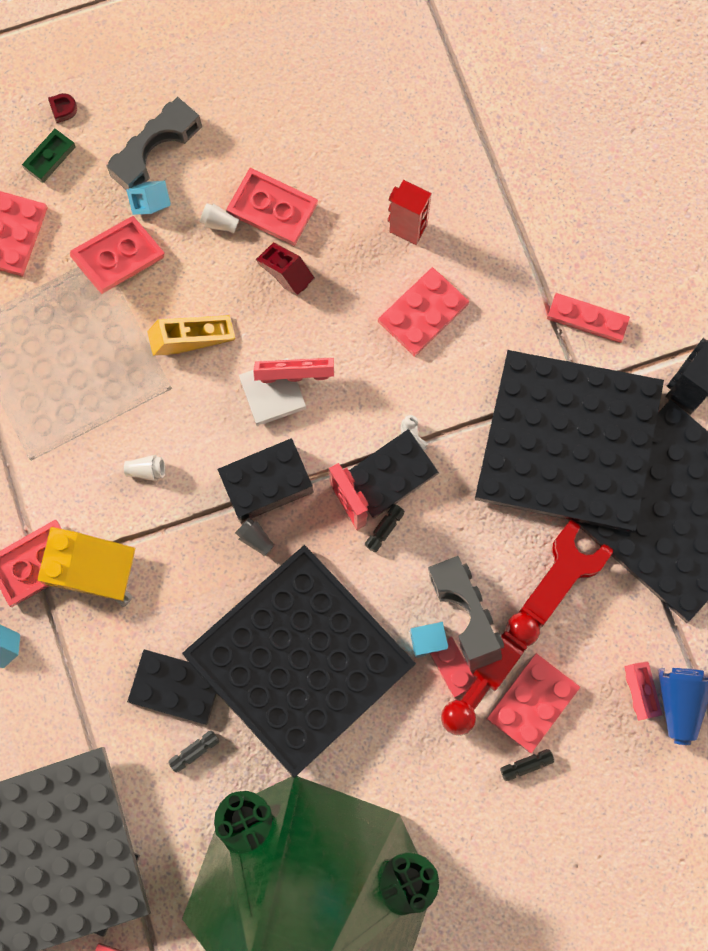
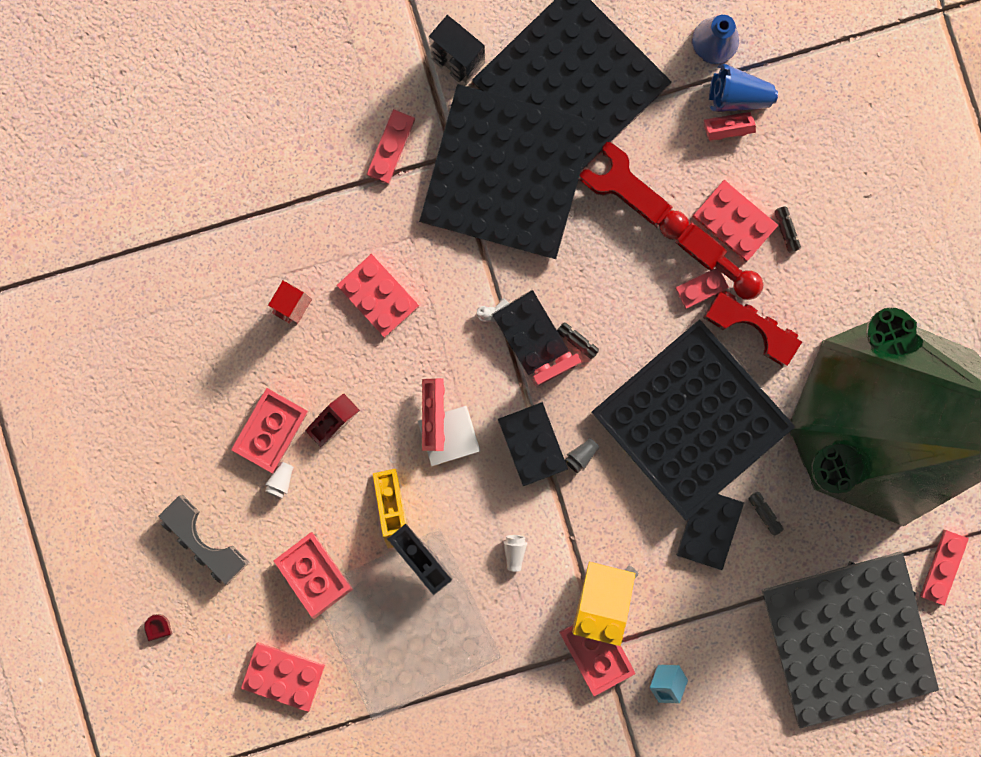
camera: 85 degrees left, 10 degrees up
(48, 155) = (208, 640): dark green plate -> none
(133, 360) = (420, 559): none -> black slope
(148, 197) = (255, 545): medium azure panel -> none
(391, 758) = (778, 344): none -> red arch
(428, 639) = (679, 306): medium azure panel -> none
(478, 640) = (632, 283): dark grey arch -> none

